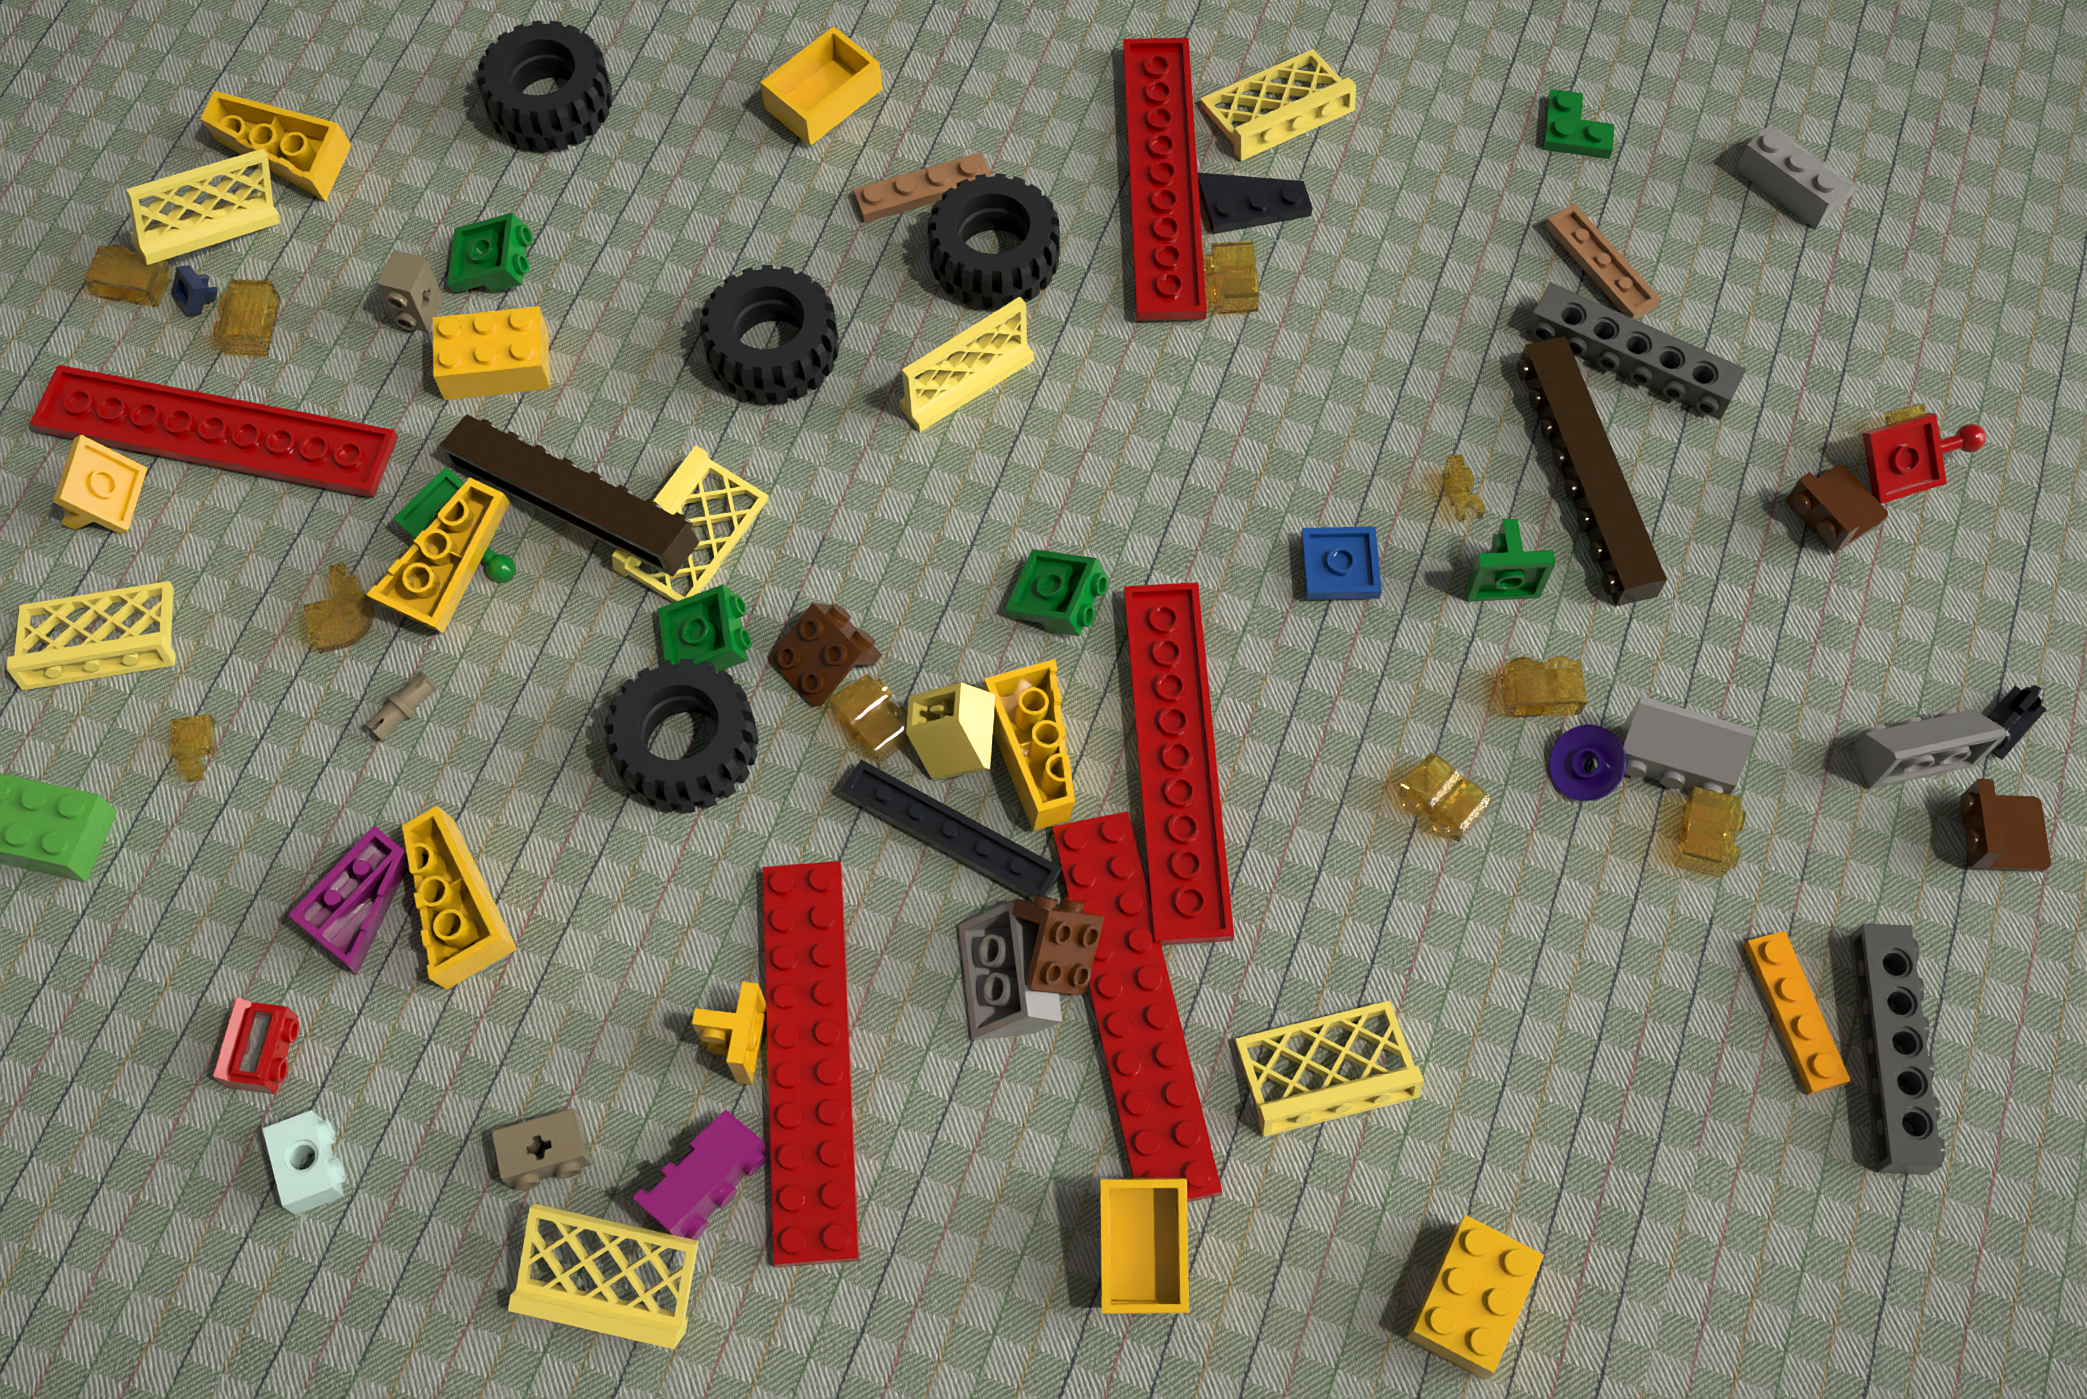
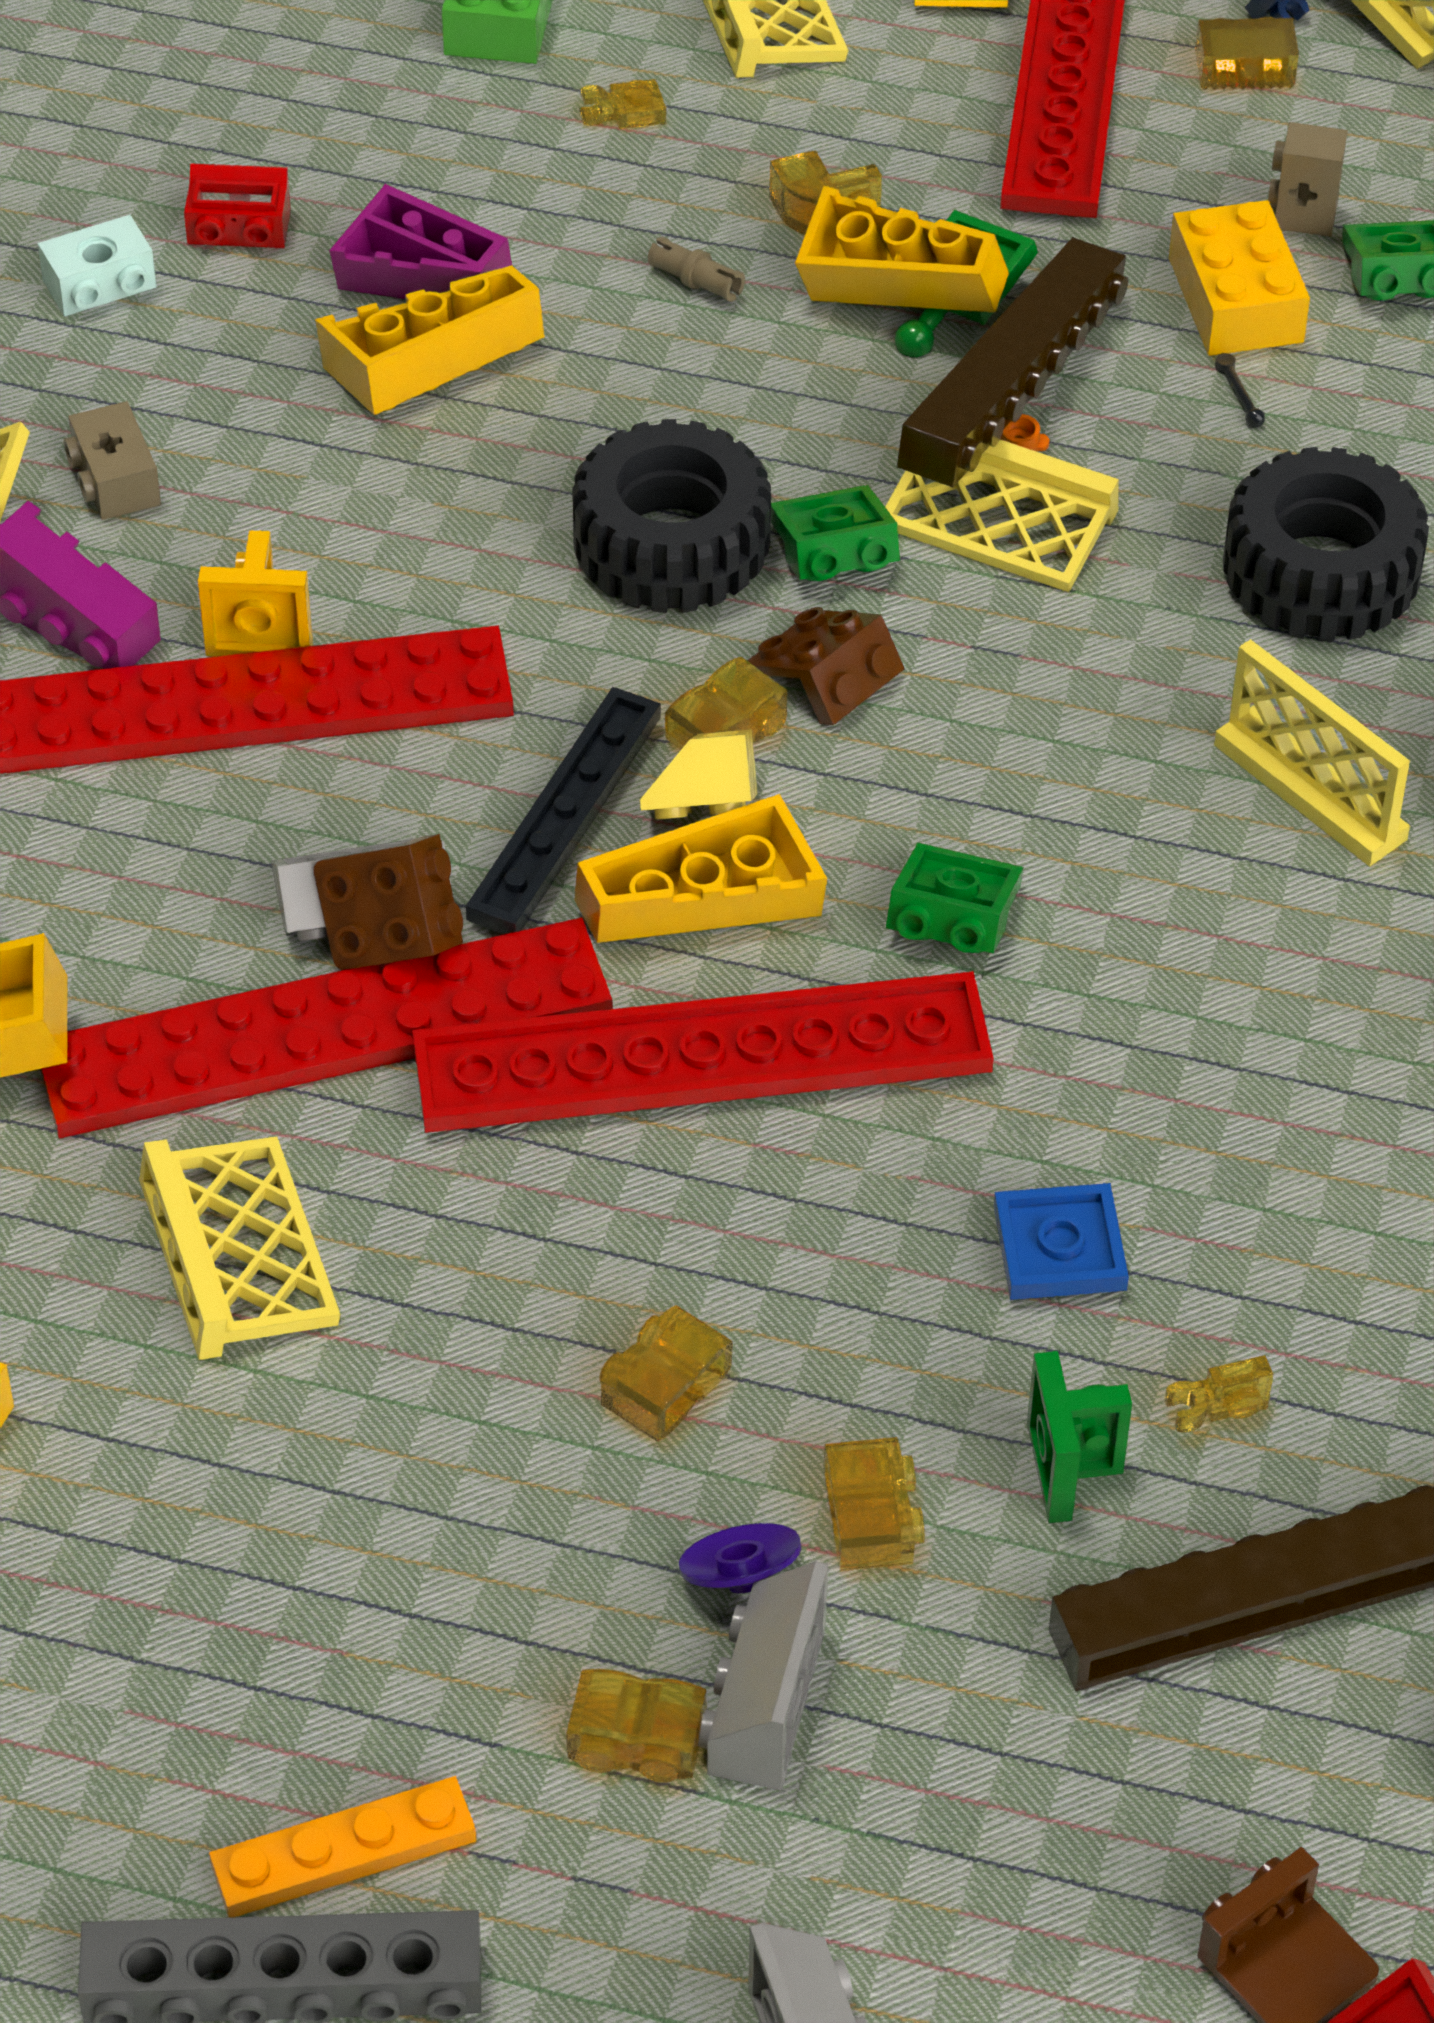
camera: 85 degrees right, 15 degrees down
(563, 378) = (1226, 364): none -> black hinge

